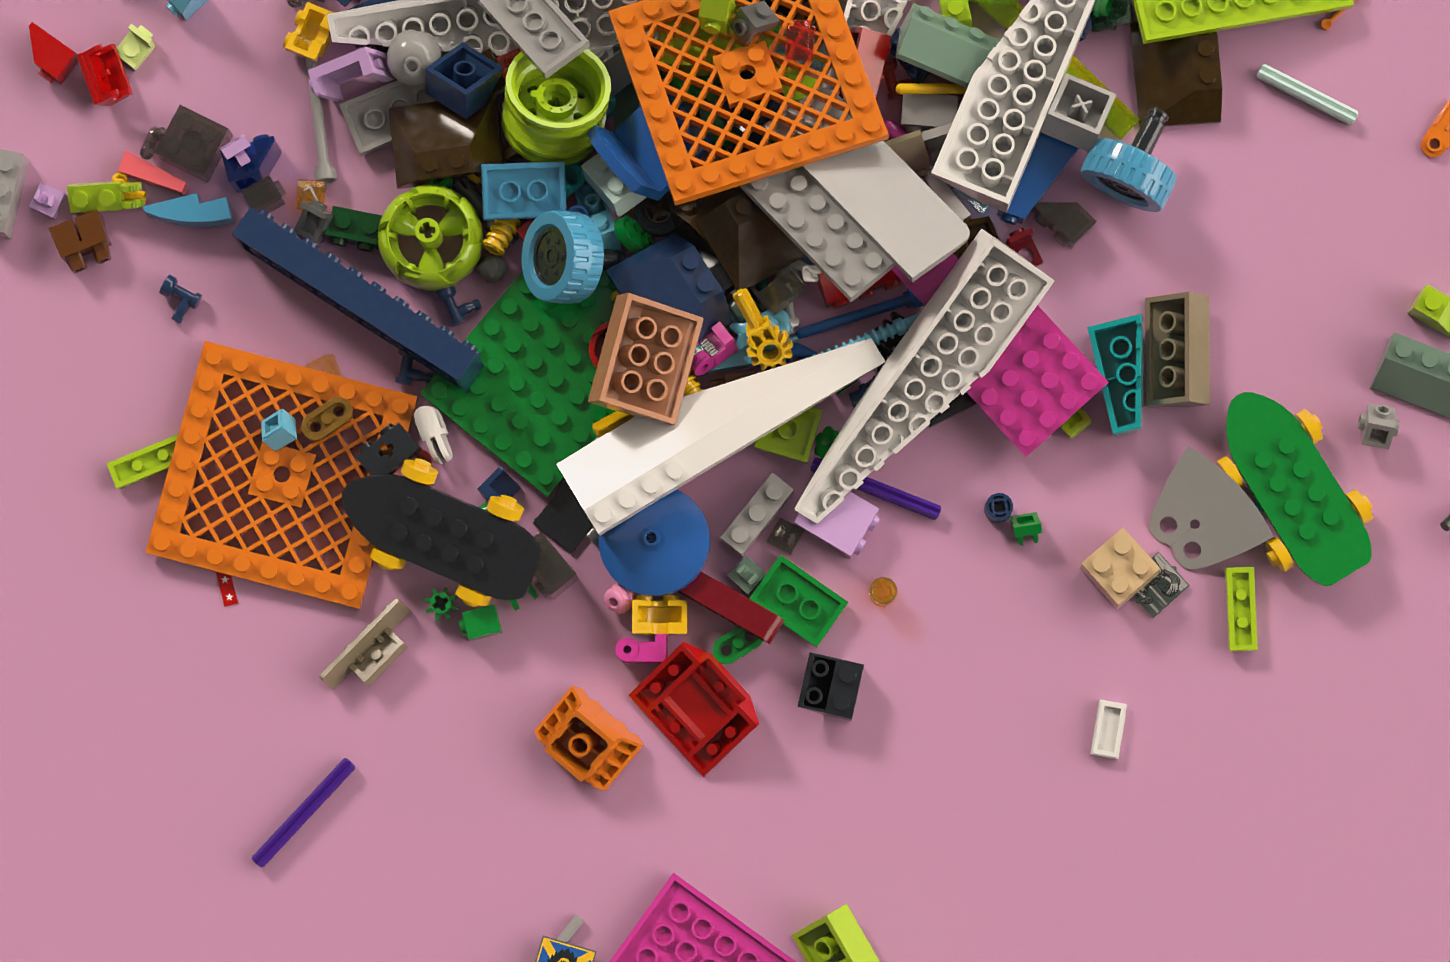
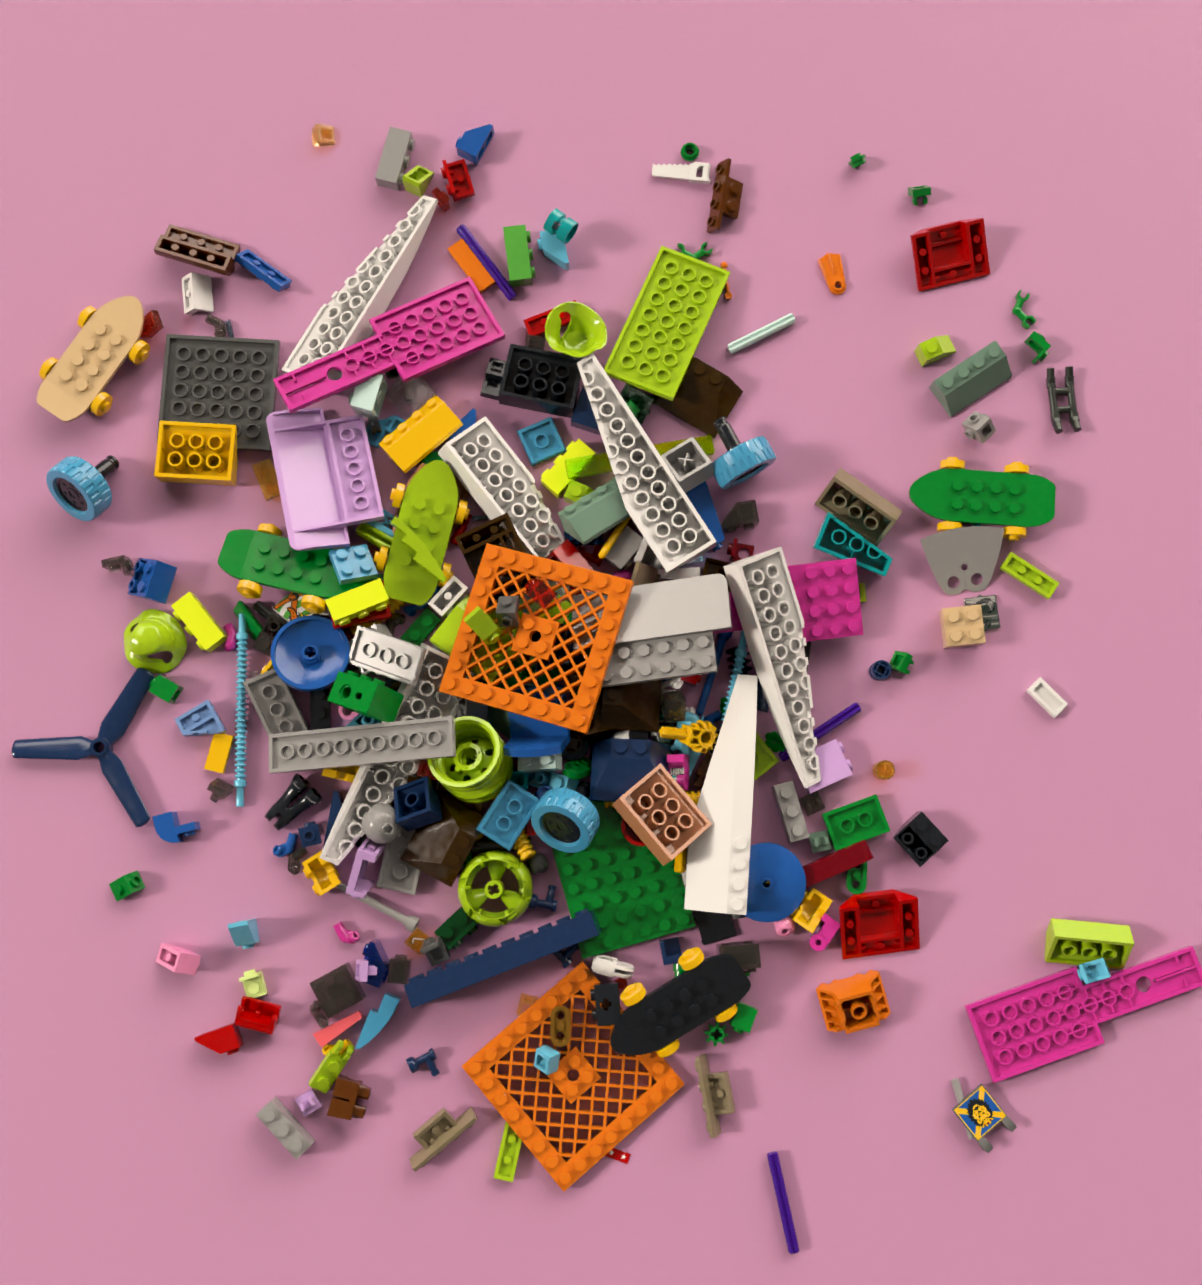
camera: 60 degrees left, 0 degrees up
(114, 367) = (438, 1133): none -> dark tan bracket
(260, 111) = (346, 935): none -> dark pink arm

